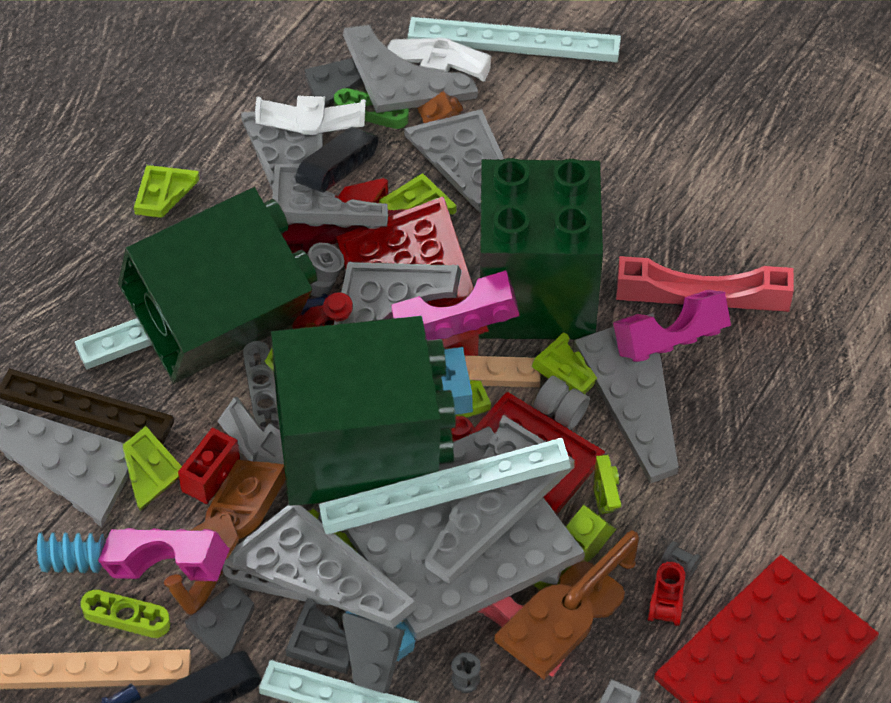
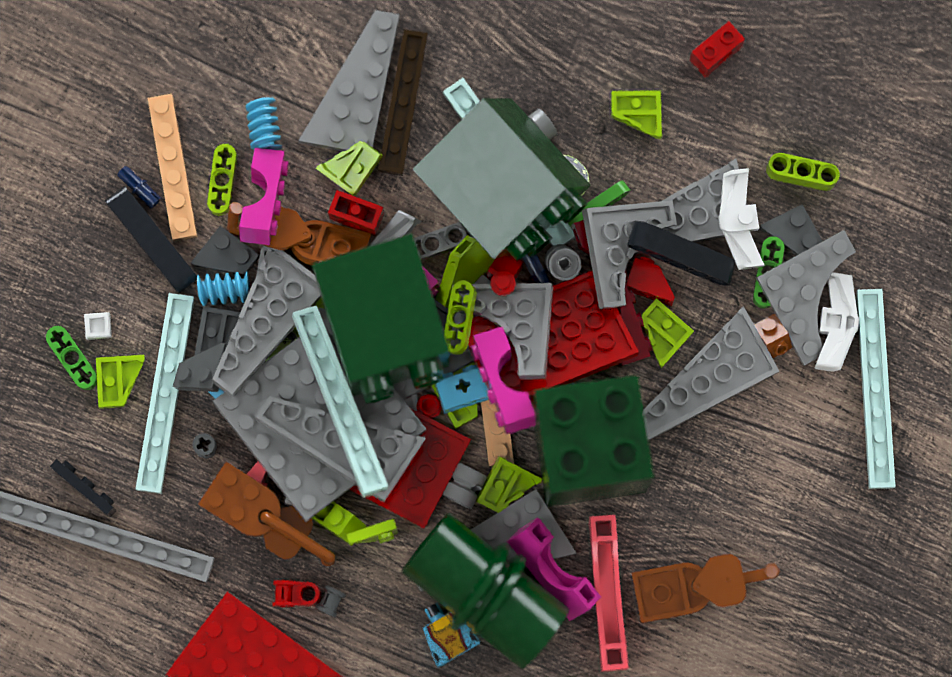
camera: 80 degrees right, 25 degrees up
(115, 111) = (717, 49): none -> red brick
(267, 623) = (223, 288): none -> medium azure piece
(270, 62) = (814, 167): none -> lime beam
(691, 380) = (485, 590): none -> dark green piece
(705, 232) = (669, 593): none -> dark orange plate
(736, 445) = (443, 641): none -> torso

